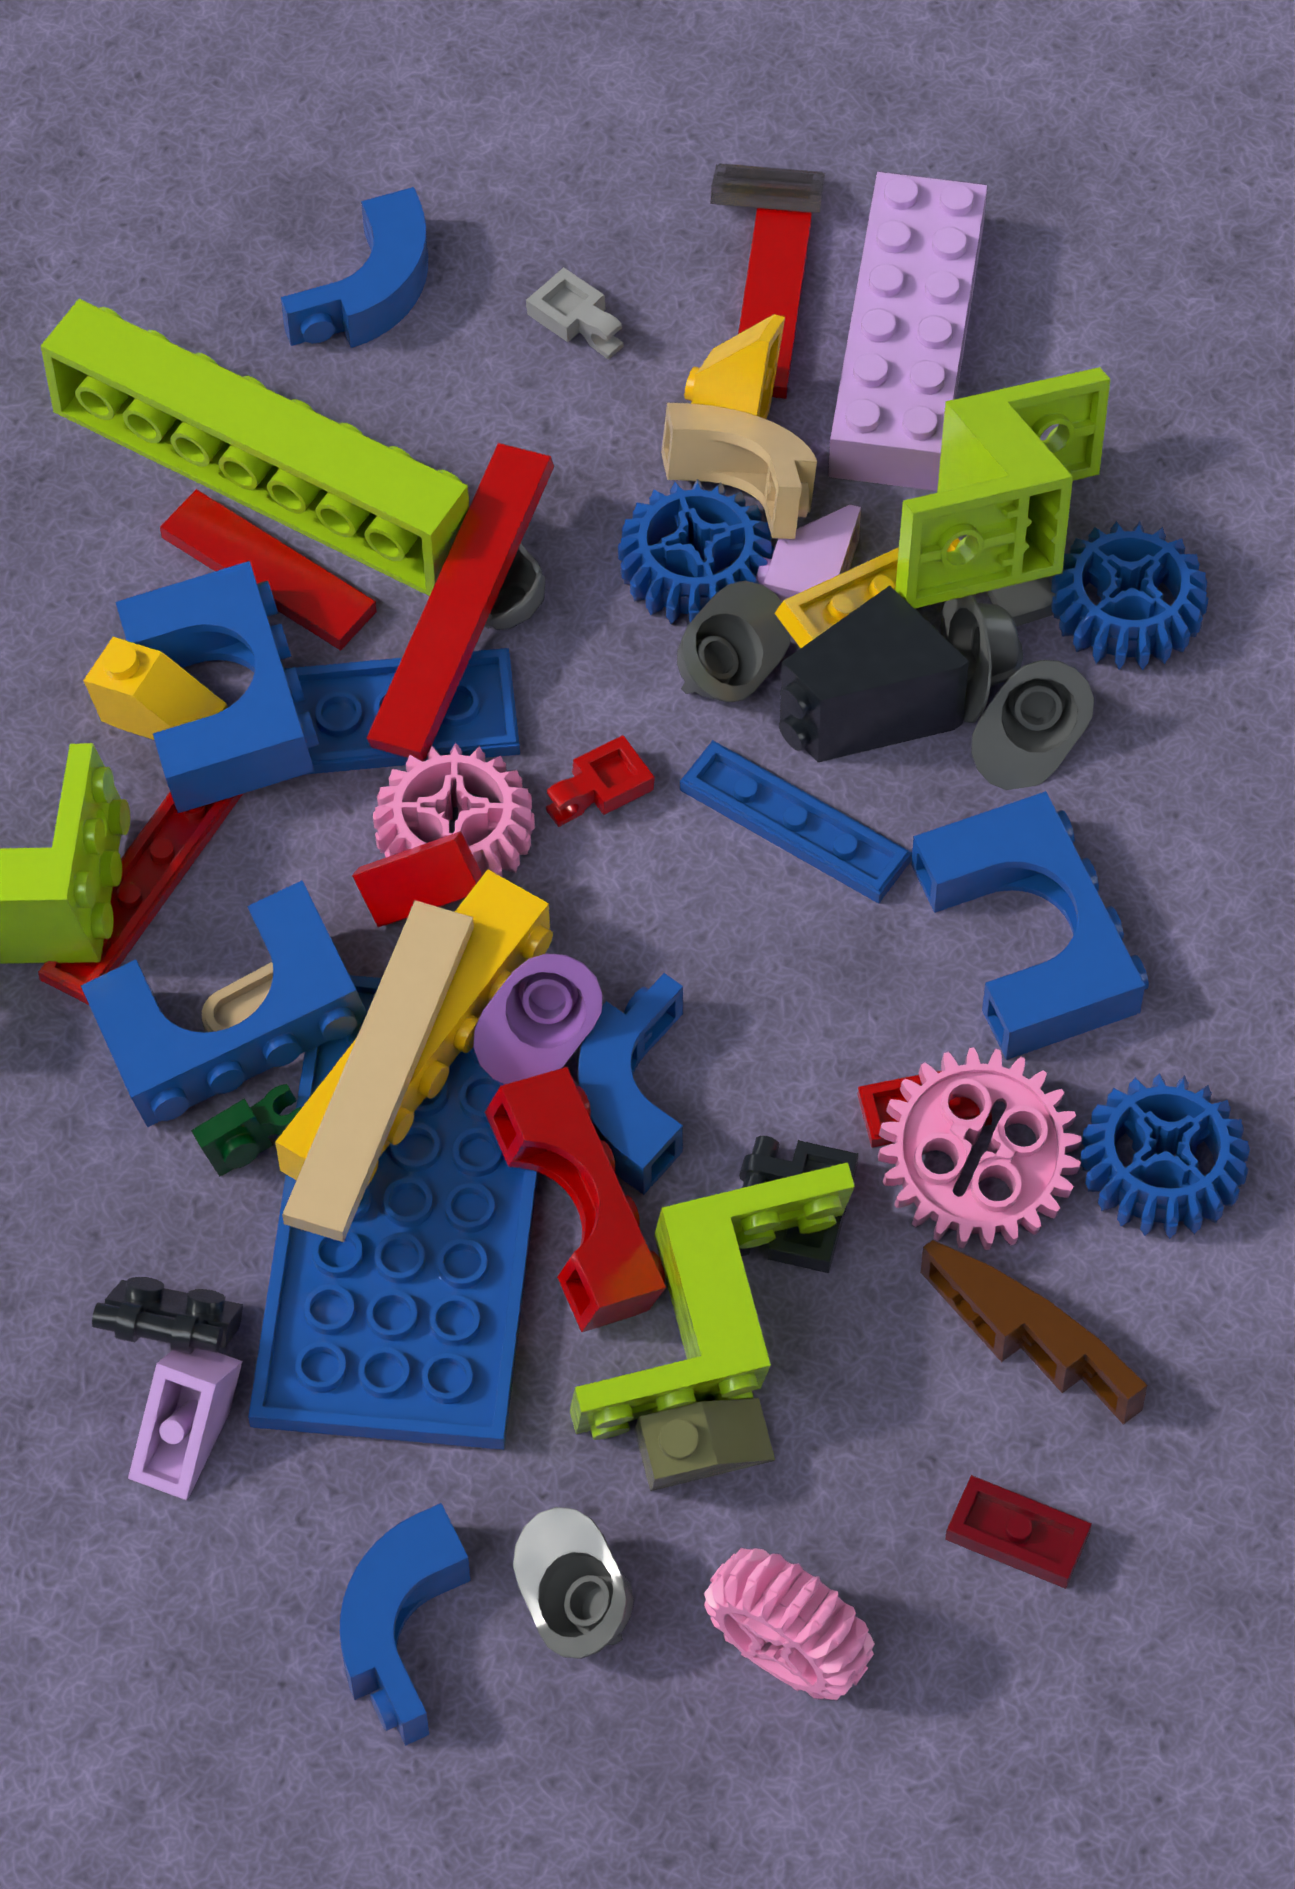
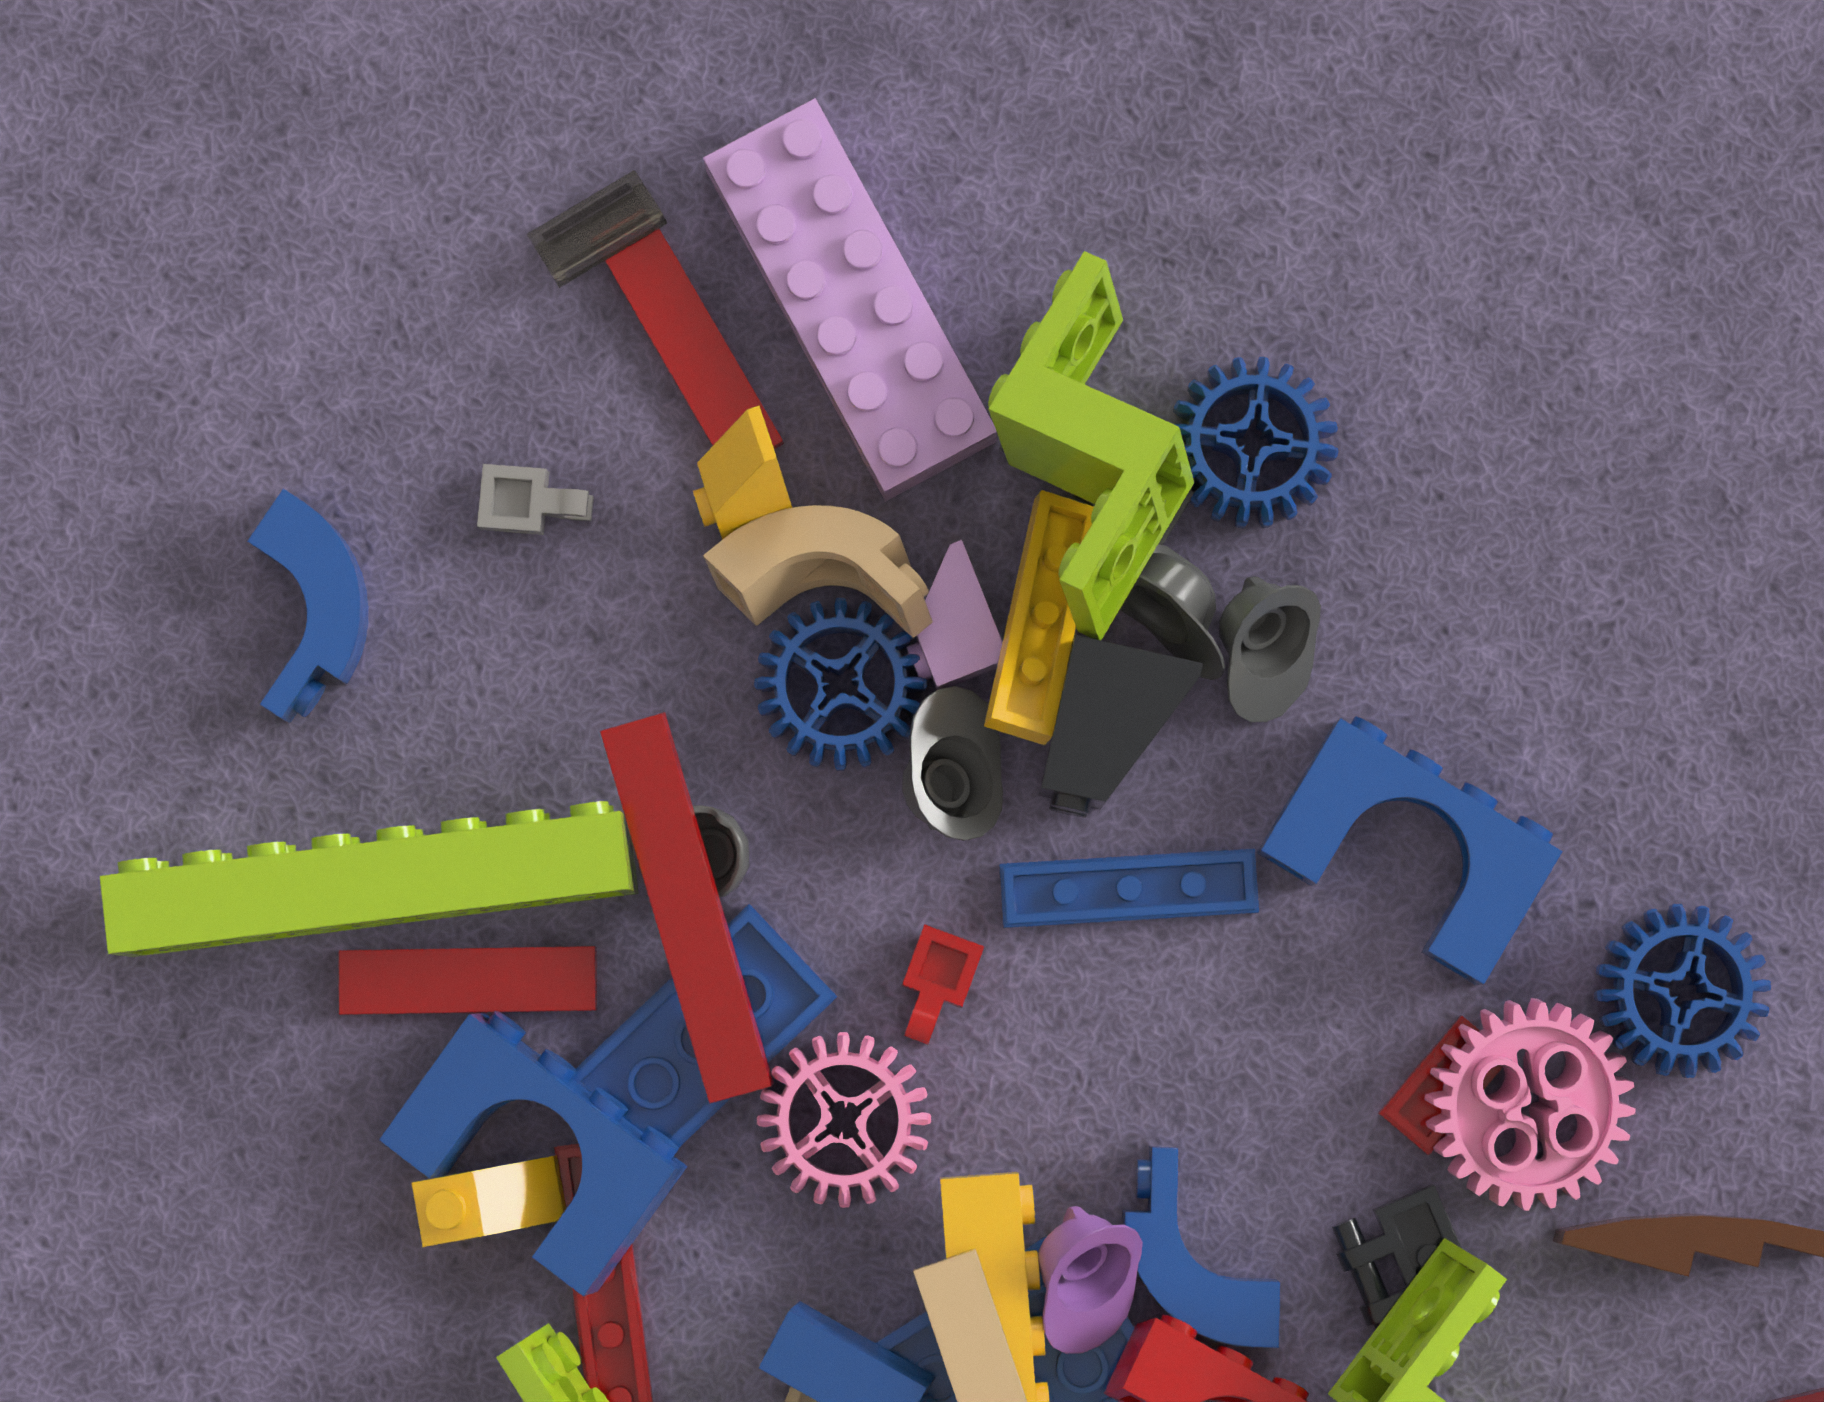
camera: 35 degrees left, 25 degrees up
(427, 873) = (871, 1212): red tile -> none

